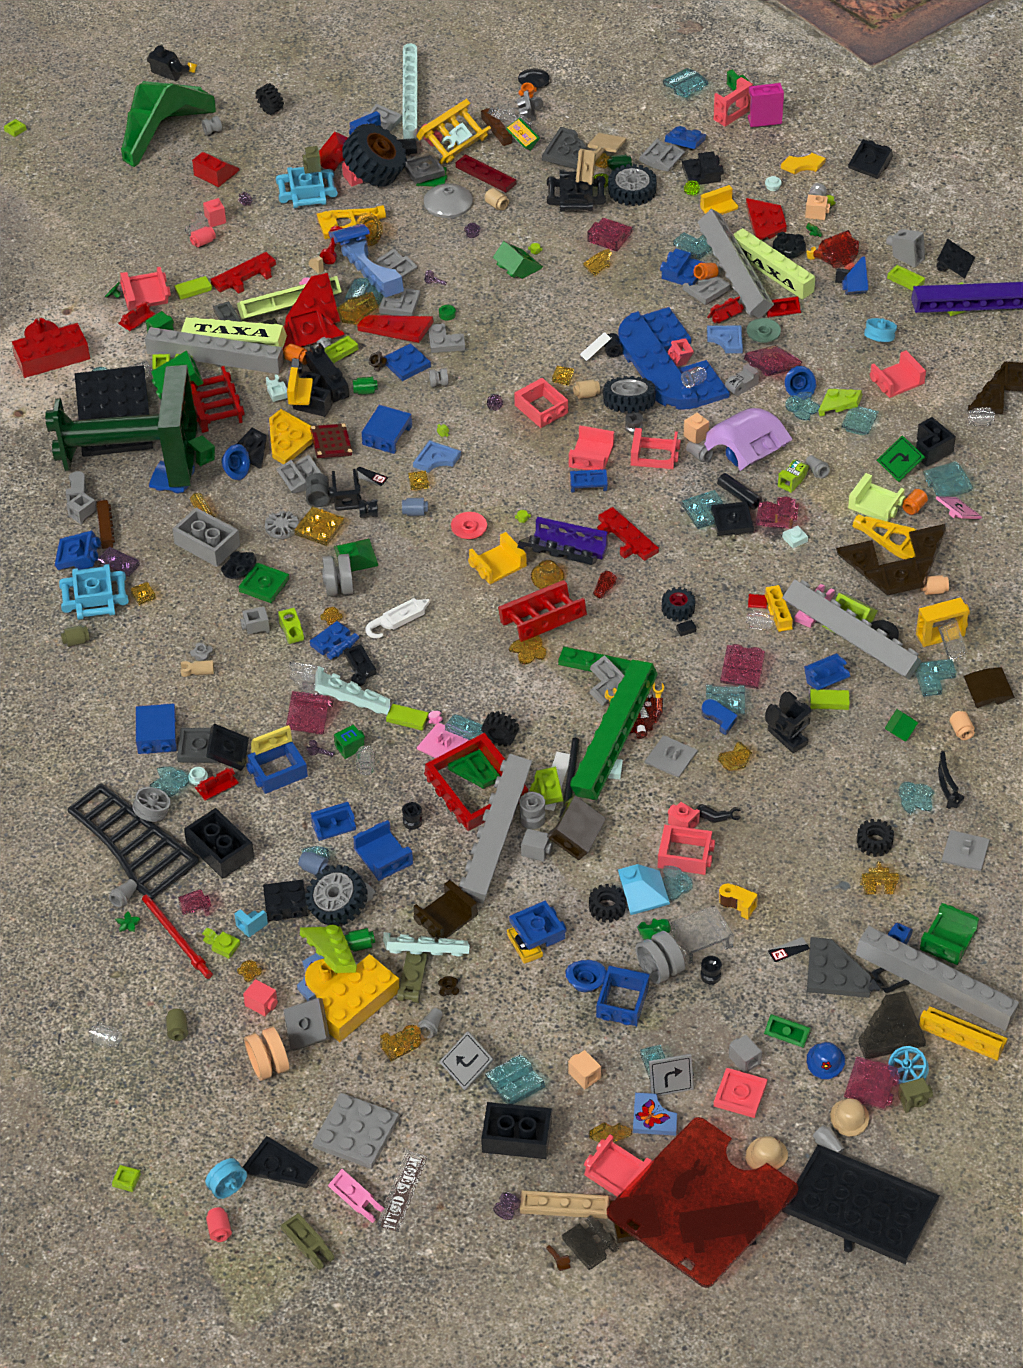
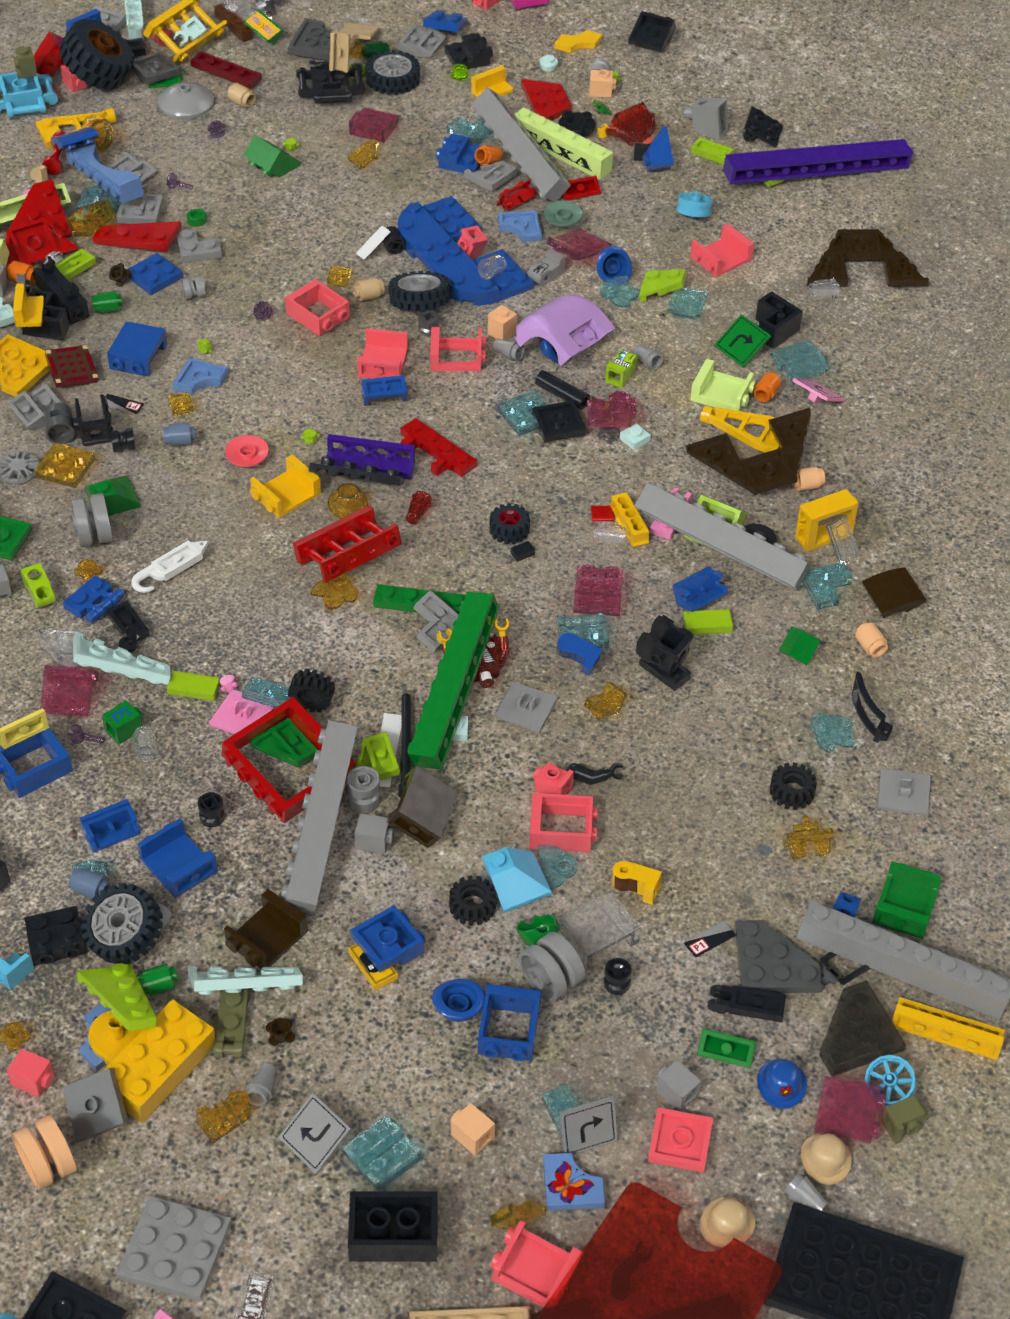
camera: 10 degrees left, 0 degrees up
(809, 999) = (747, 1002): none -> black hinge

